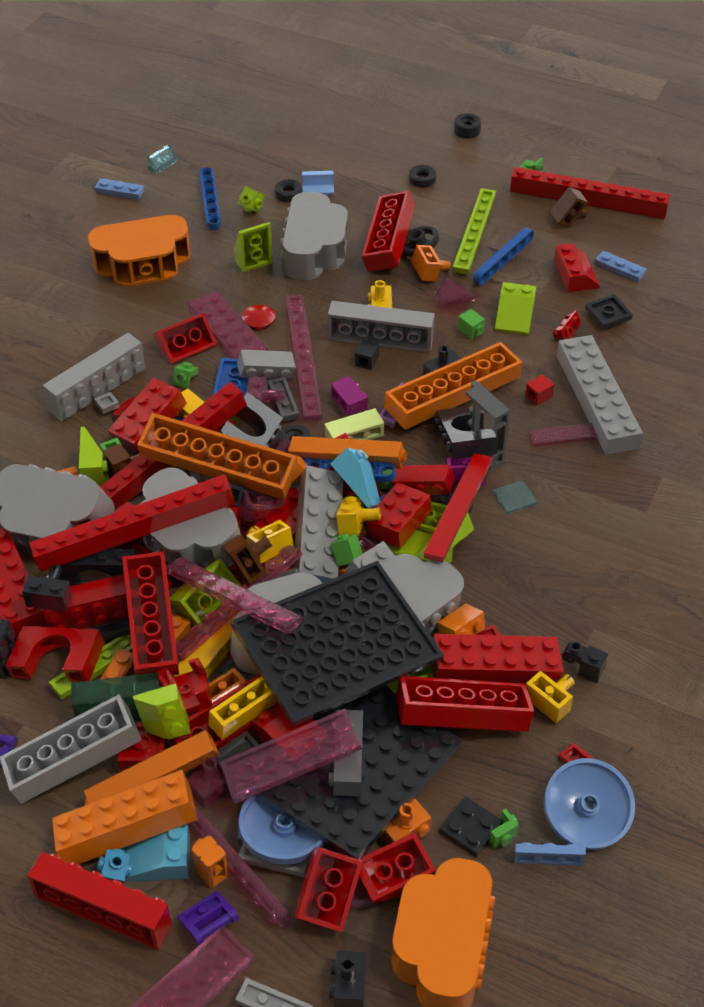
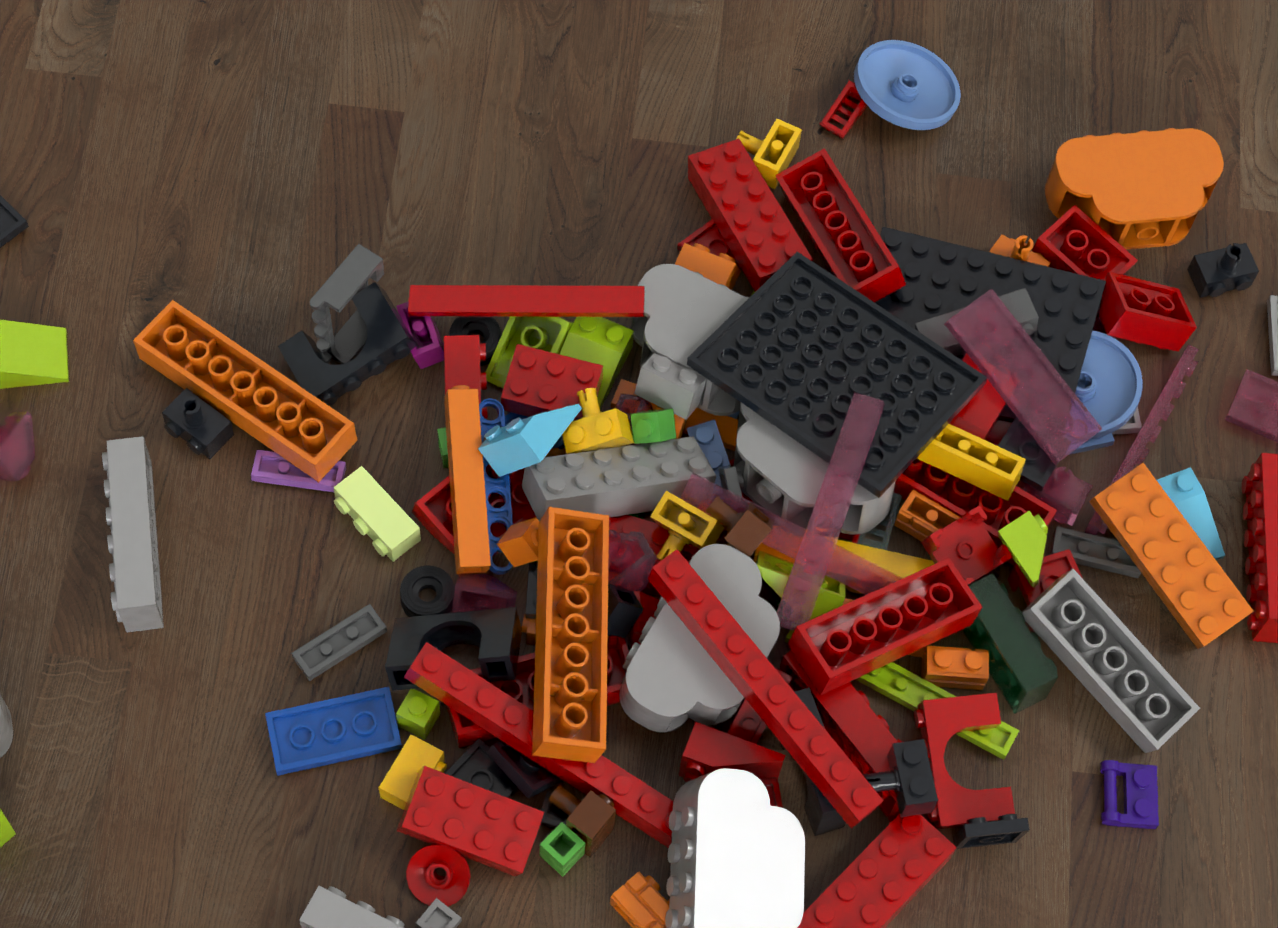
camera: 115 degrees left, 15 degrees up
(91, 459) = (601, 868): lime slope -> none
(114, 629) = (886, 703): black tile -> none
(115, 865) = (1231, 548): dark azure brick -> none
(176, 758) = (1097, 550): orange brick -> none
(183, 373) = (328, 820): bright green bracket -> none
(185, 338) = (239, 855): red slope -> none
(205, 912) = (1223, 440): dark purple plate -> none
(210, 861) = (1169, 446): orange brick -> none
(226, 324) = (182, 800): clear pink plate -> none
(258, 316) = (140, 756): red dish -> none
(259, 388) = (353, 672): clear pink brick -> none
(266, 363) = (281, 684): light grey brick -> none
(303, 358) = (223, 646): clear pink plate -> none
(349, 396) = (305, 542): magenta brick -> none
(367, 354) = (195, 545): black brick -> none
(380, 295) = (57, 561): yellow brick -> none
(470, 826) = (978, 204): black plate -> none
(471, 324) = (75, 409): bright green brick -> none
(506, 832) = (974, 163): bright green bracket -> none
(515, 497) = (433, 267): clear light blue piece -> none
(539, 390) = (206, 279): red brick -> none
(549, 854) = (983, 116): medium blue plate -> none
(563, 434) = (284, 232): clear pink tile -> none
(568, 326) = (51, 276): red hinge -> none
(591, 660) = (700, 124): black brick -> none
(599, 395) = (191, 200): light grey brick -> none

